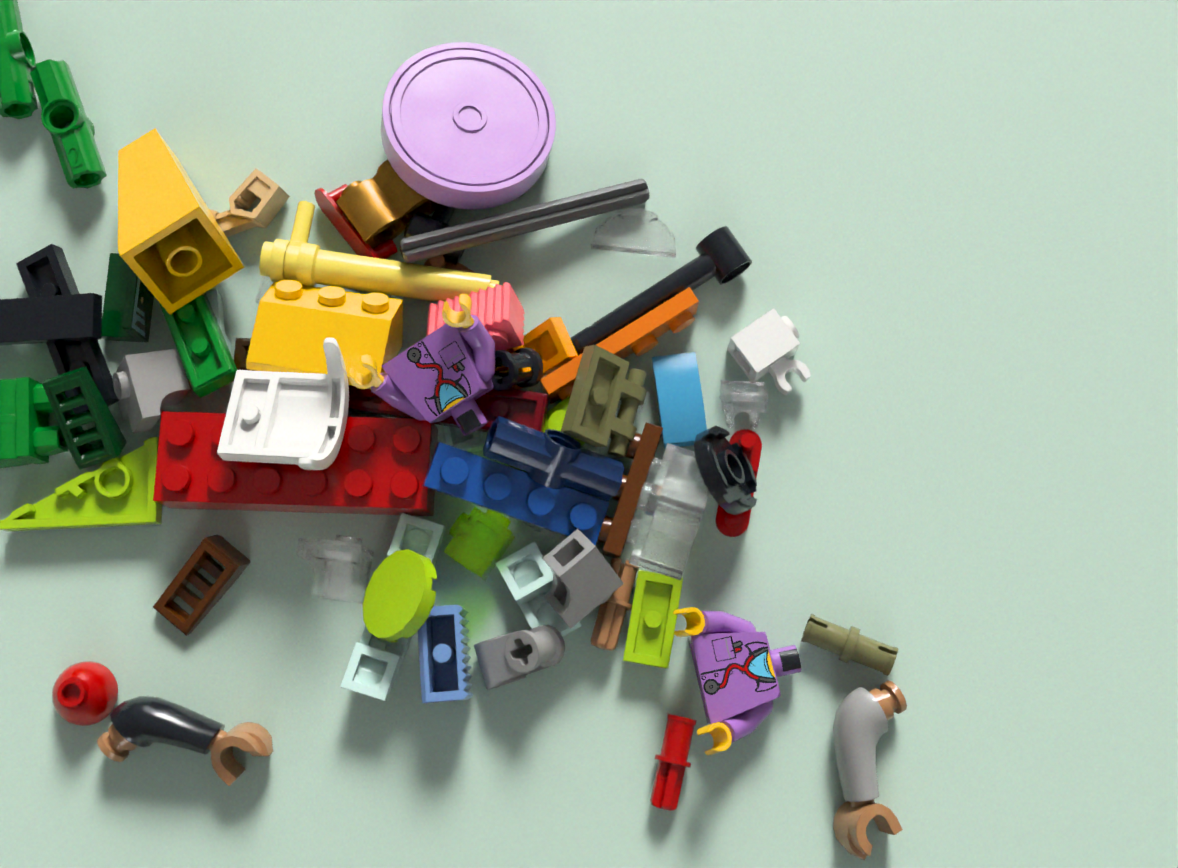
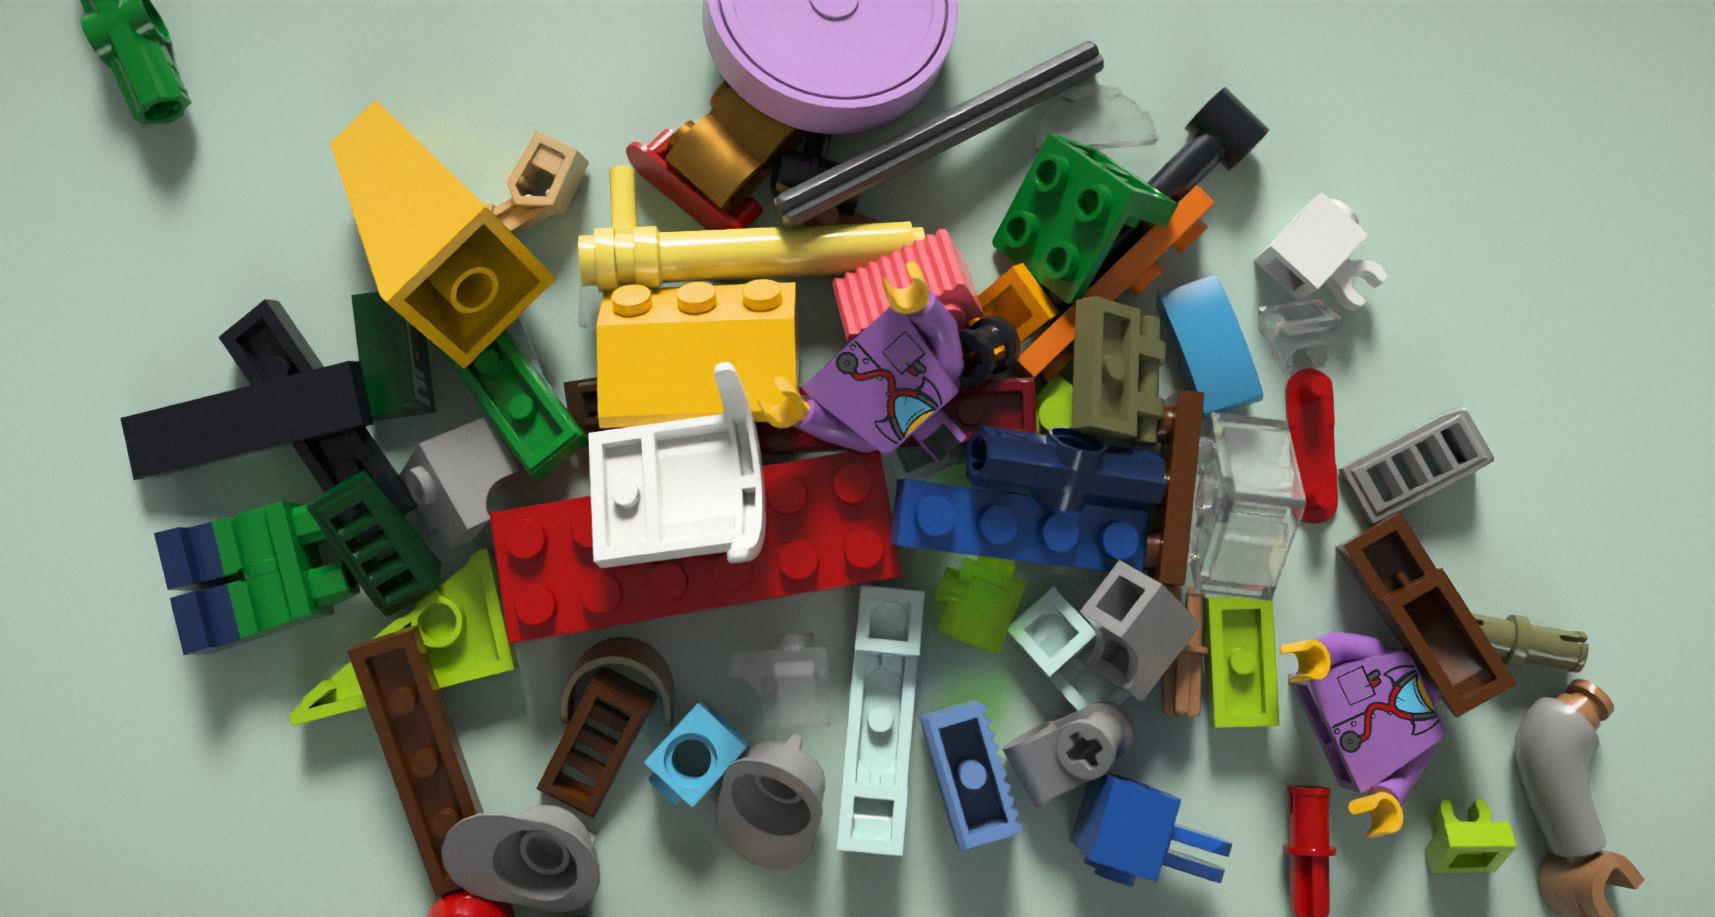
camera: 20 degrees left, 5 degrees up
(60, 105) = (225, 92): green piece -> none
(81, 570) = (417, 742): none -> reddish brown plate
(130, 649) = (524, 859): none -> light grey piece
(241, 530) = (624, 652): none -> dark tan helmet
(283, 599) = (716, 734): none -> medium azure brick
(306, 648) = (772, 804): none -> light grey piece
(399, 596) = (892, 706): lime tile -> none
(543, 715) = (1129, 830): none -> blue brick
(599, 288) = (1073, 213): none -> green bracket
(725, 470) = (1305, 435): black tile -> none
(784, 610) = (1426, 614): none -> reddish brown slope
(785, 780) = (1471, 845): none -> lime tile
(842, 496) = (1463, 440): none -> light grey slope

